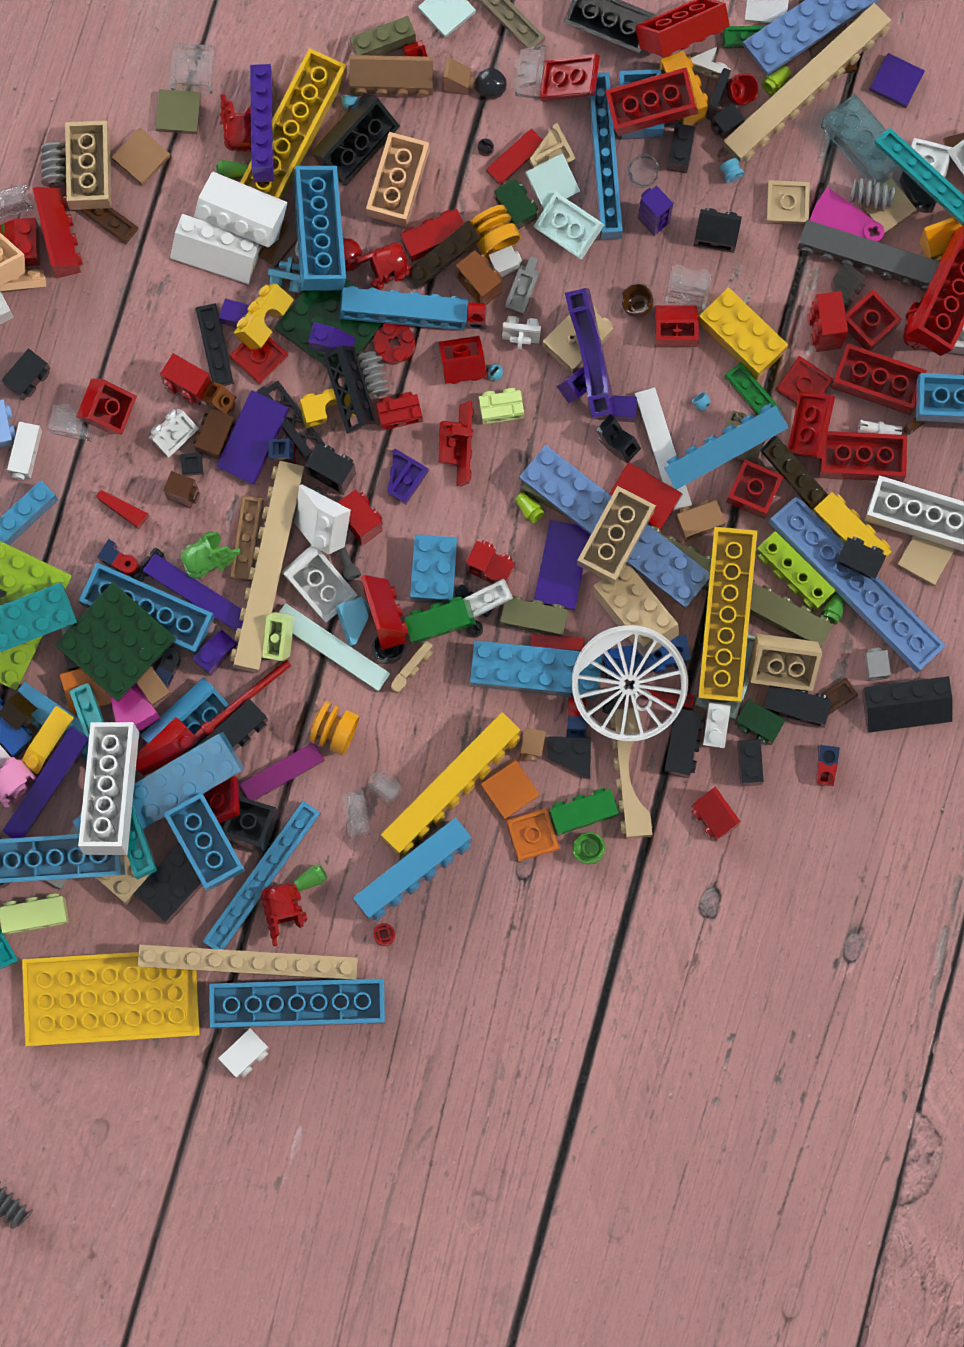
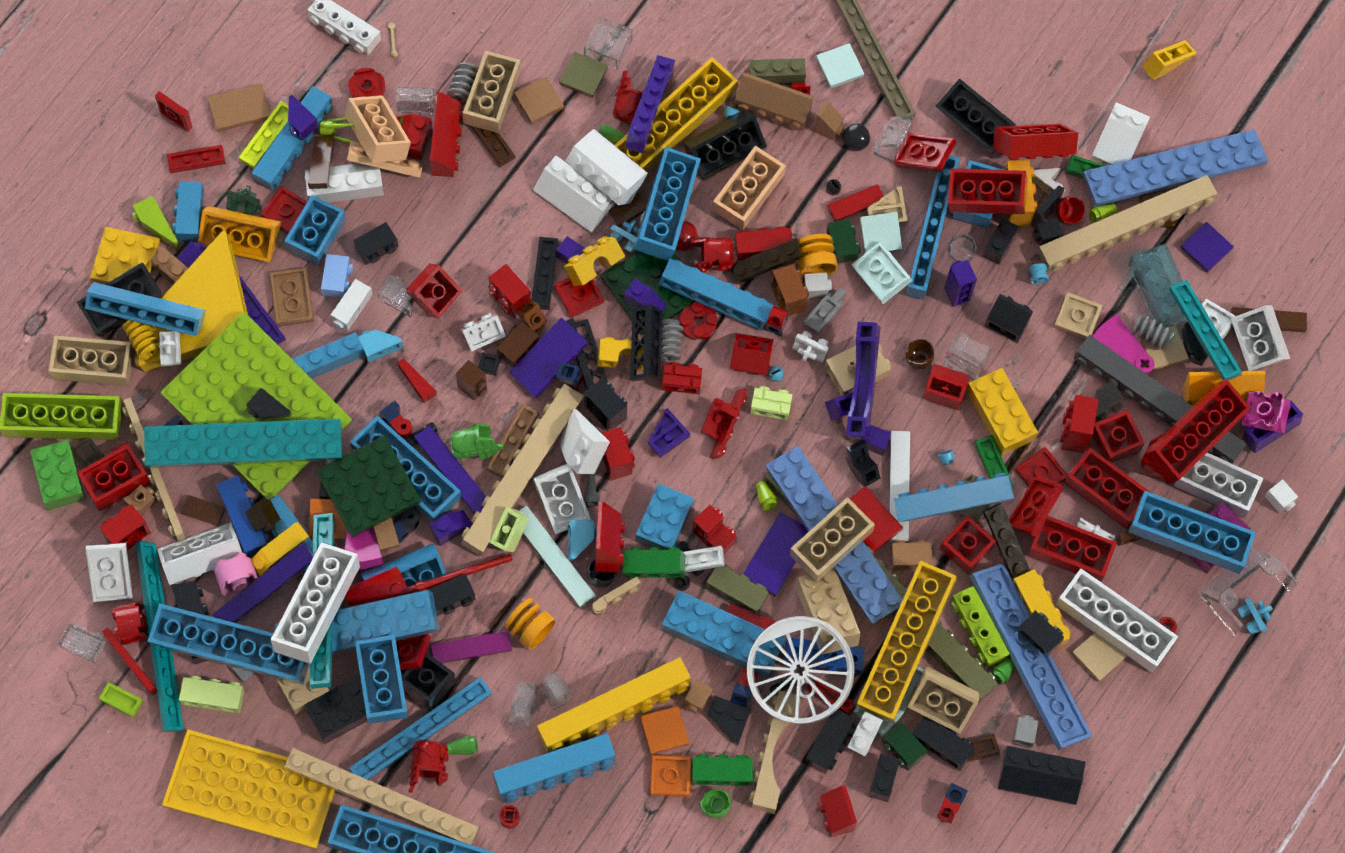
camera: 15 degrees right, 10 degrees down
(68, 483) = (379, 344): none -> medium azure slope

